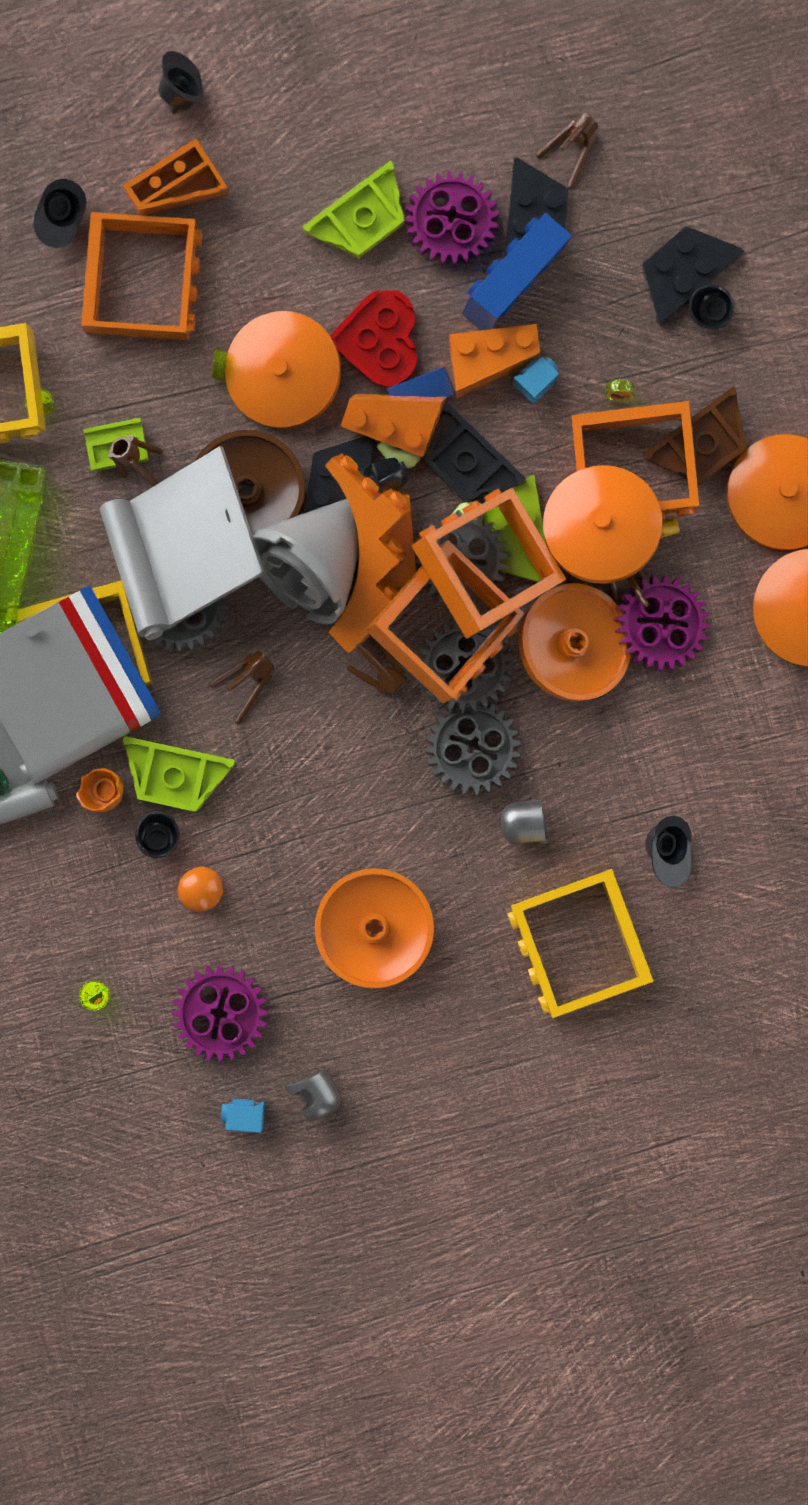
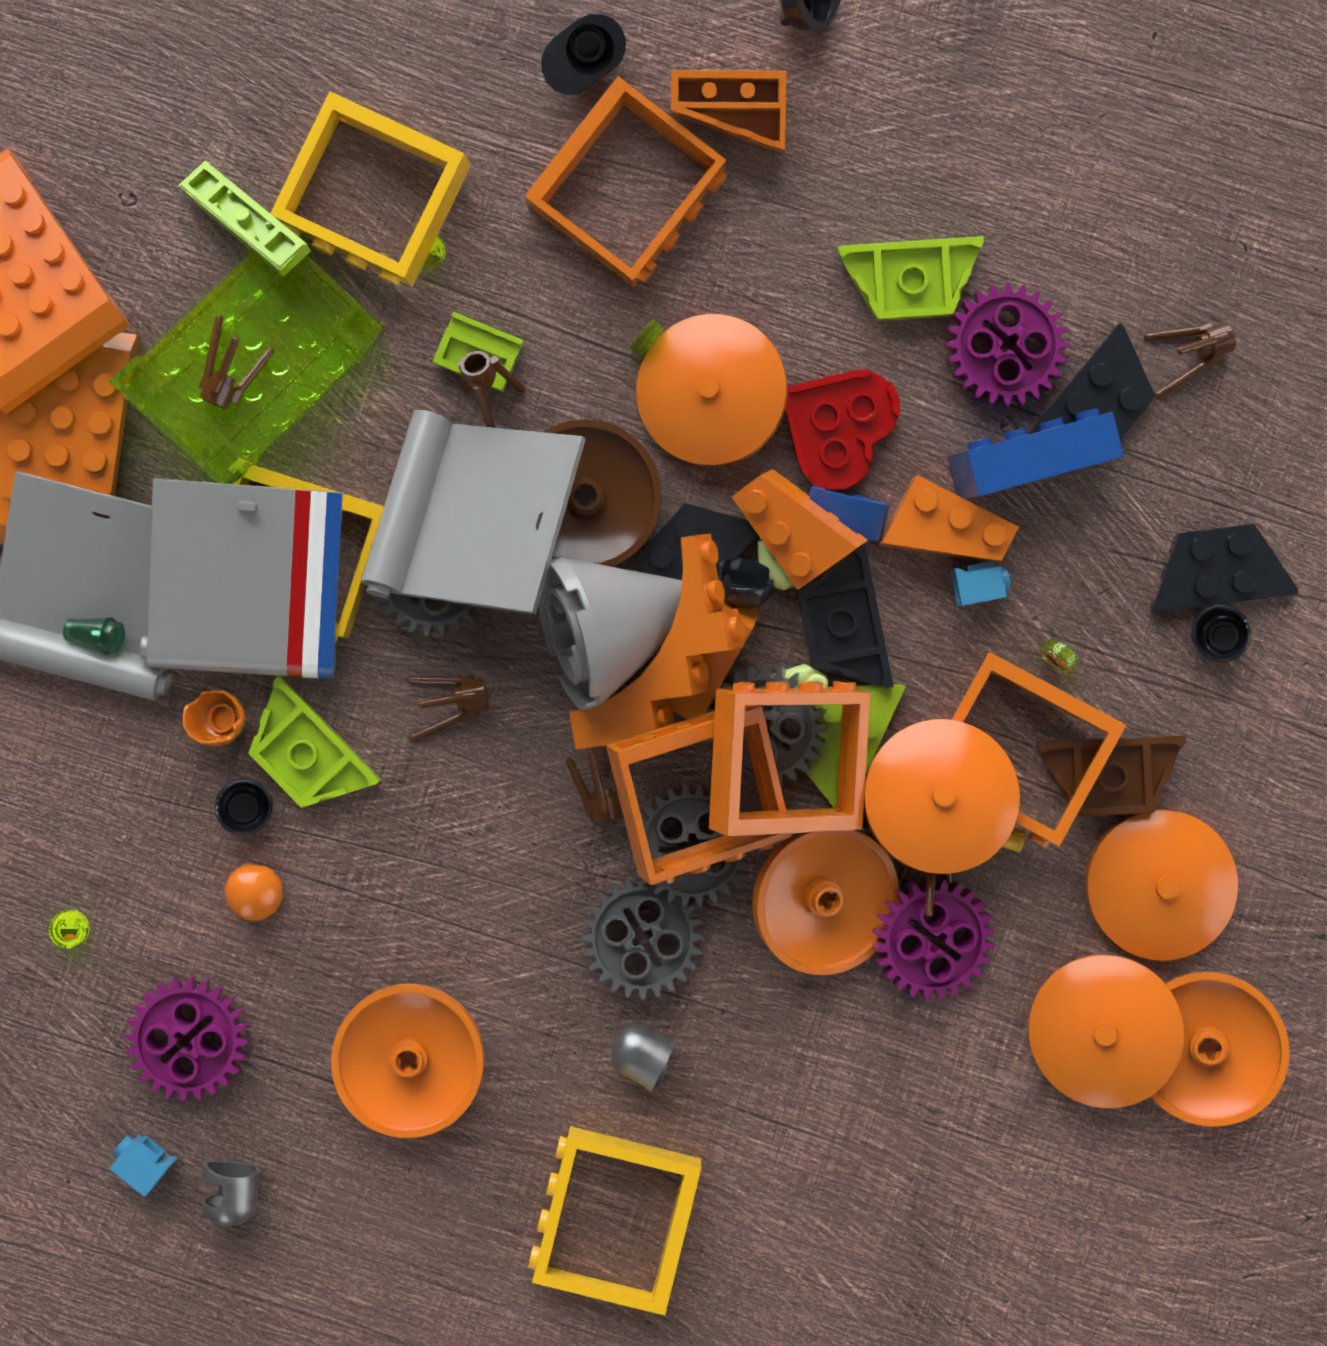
camera: 30 degrees right, 5 degrees up
(670, 850) = (777, 1187): black piece -> none

